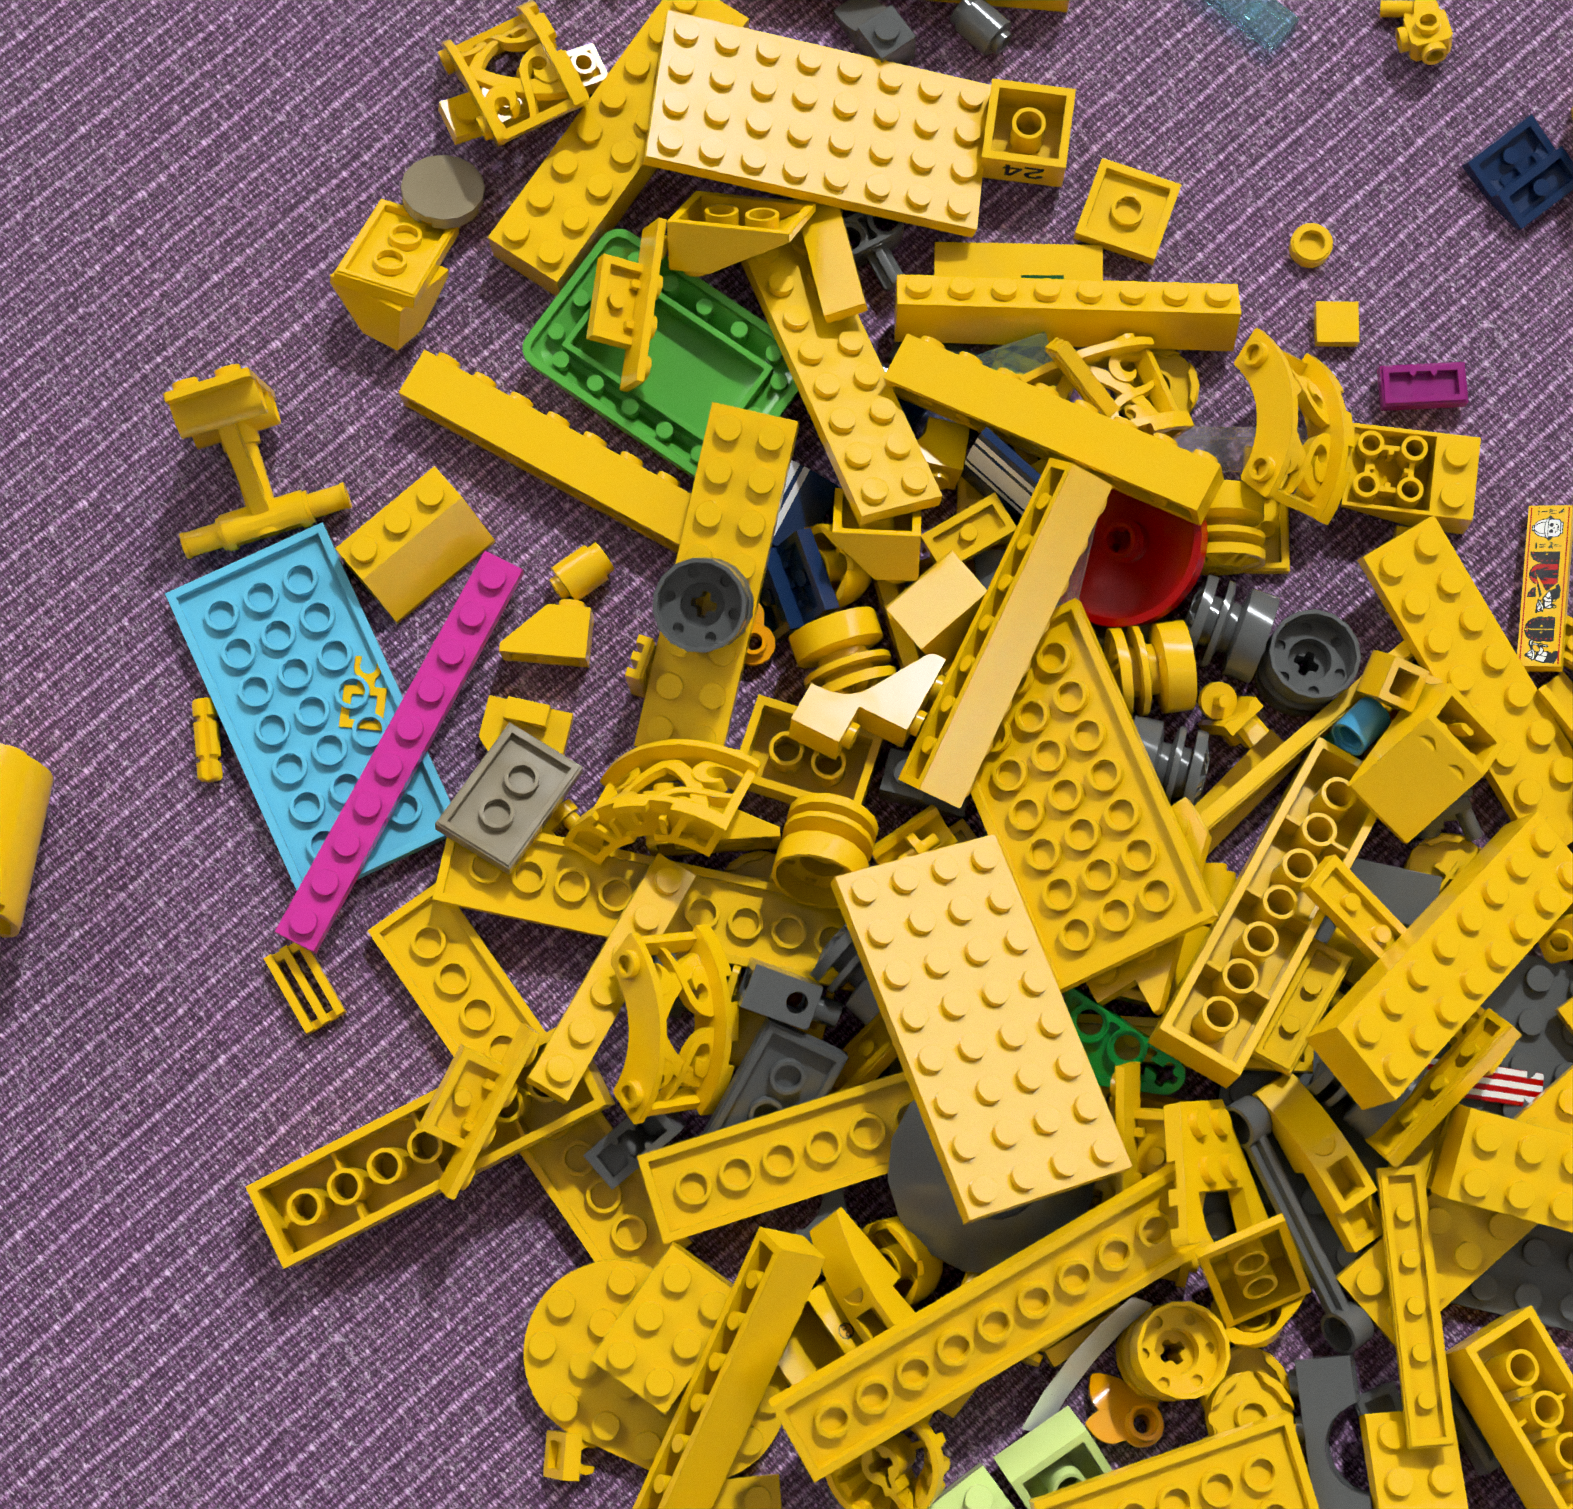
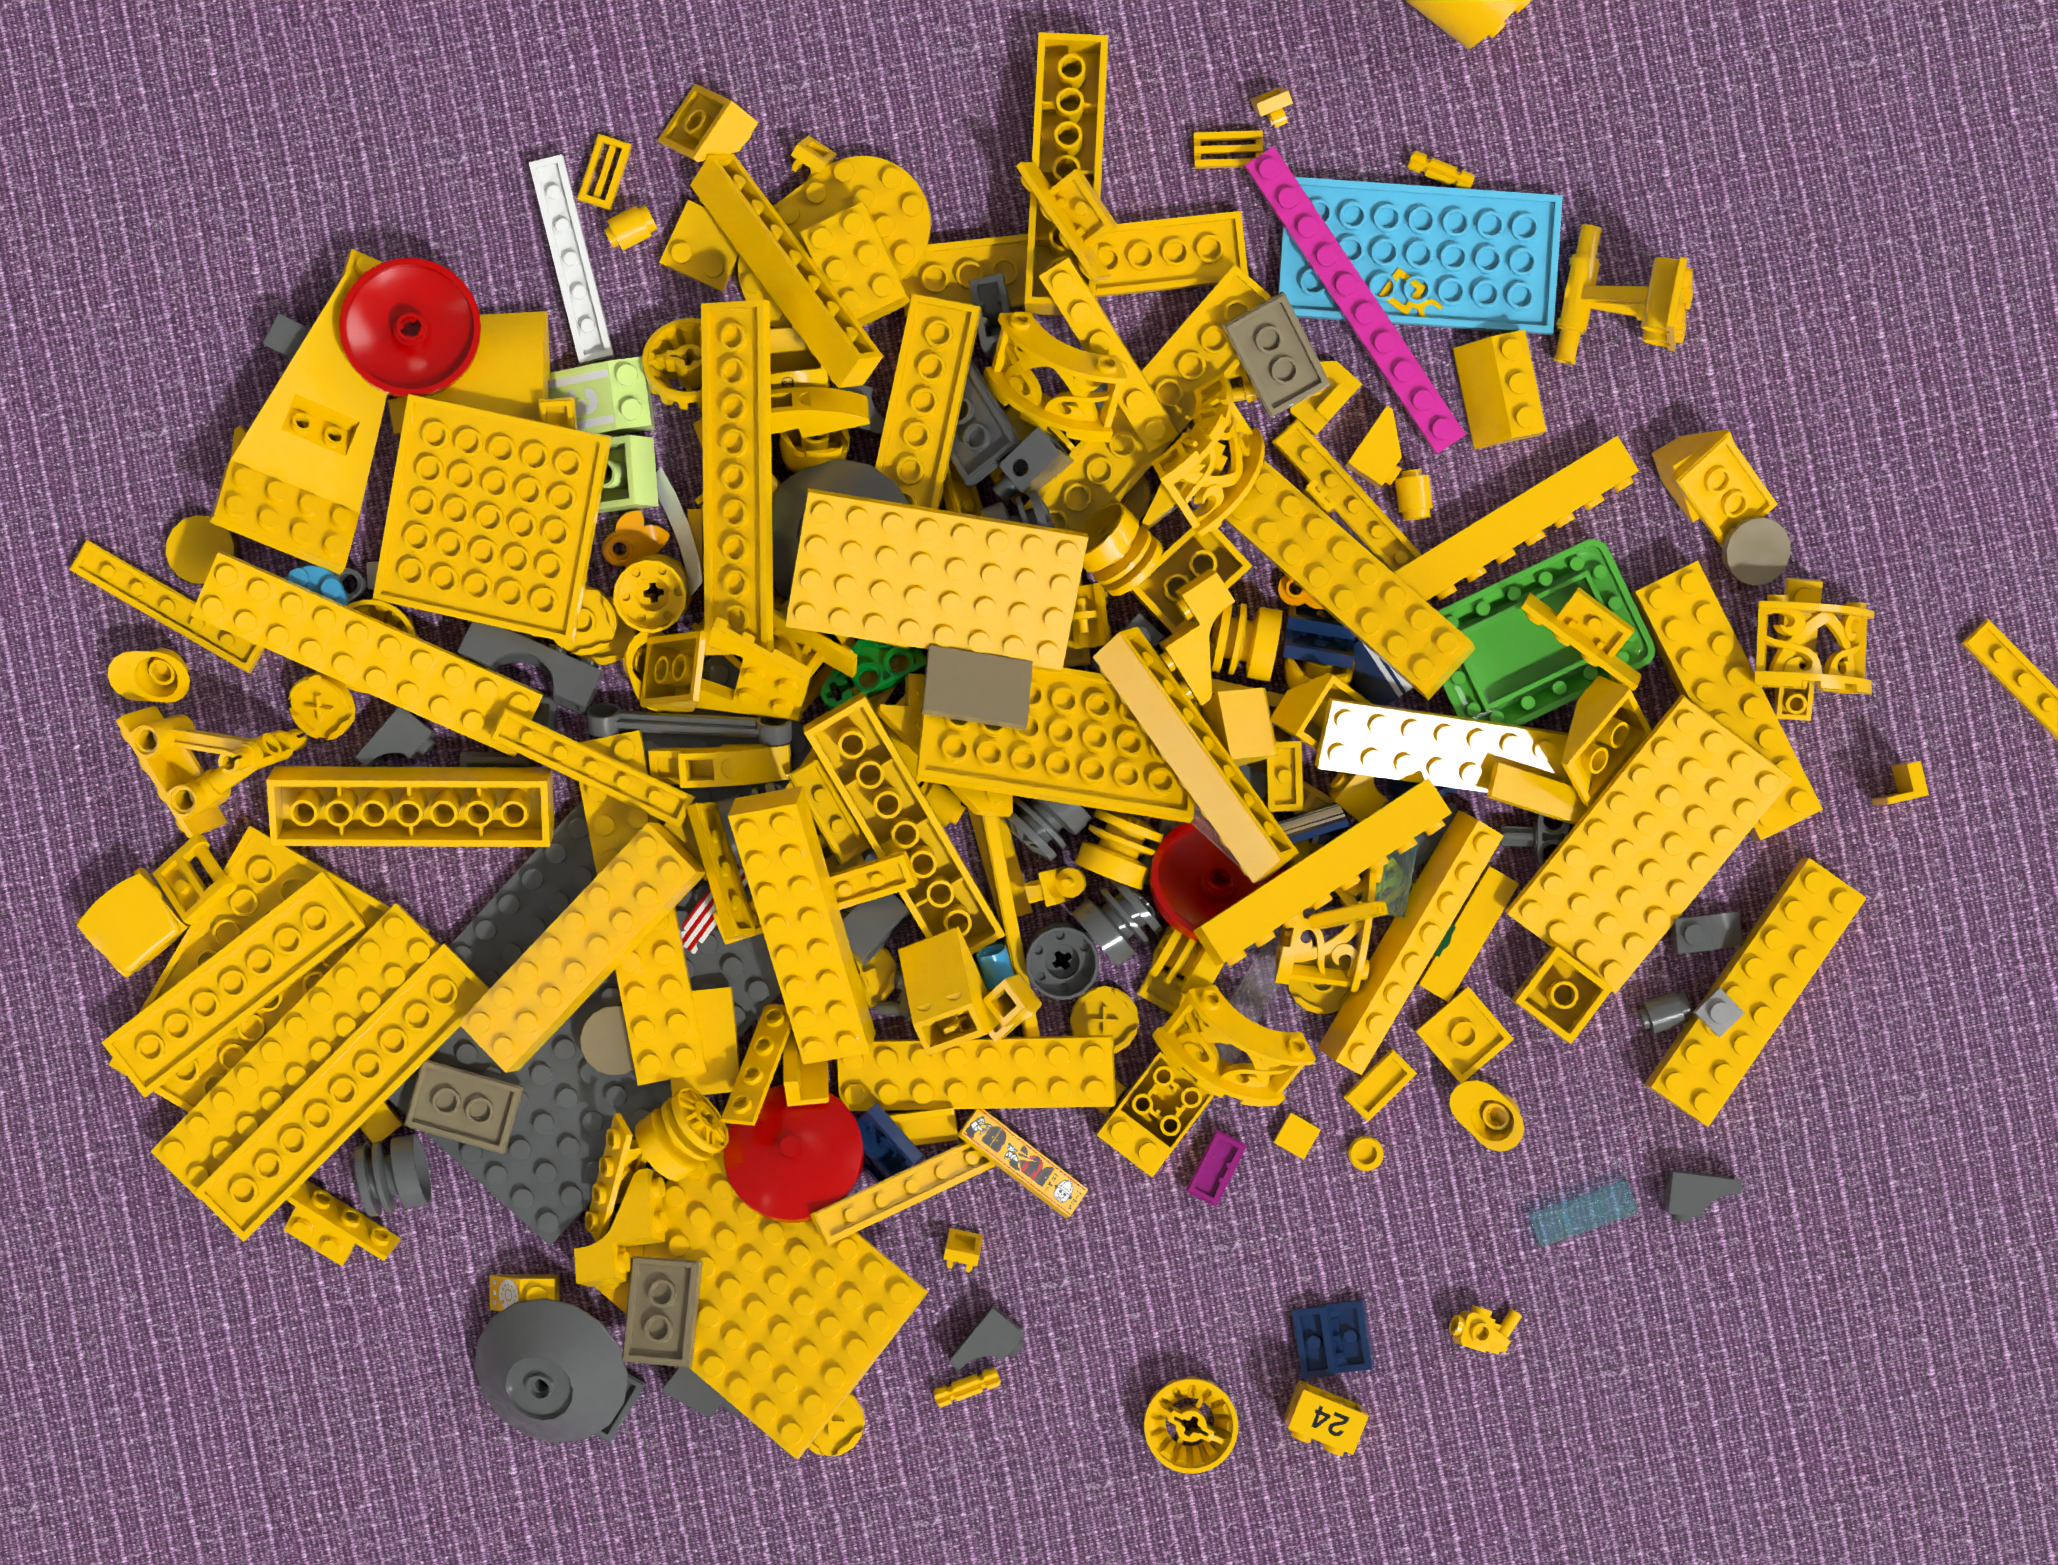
camera: 115 degrees right, 10 degrees up
(229, 962) = (1272, 105): none -> yellow tile
(632, 615) = (1354, 505): none -> yellow tile
(683, 620) = (1331, 535): dark grey wheel -> none
(1072, 912) = (977, 687): none -> dark tan tile
(1198, 136) = (1487, 1114): none -> yellow piece
(1229, 265) = (1379, 1085): none -> yellow tile
(1337, 585) = (1105, 1012): none -> yellow tile

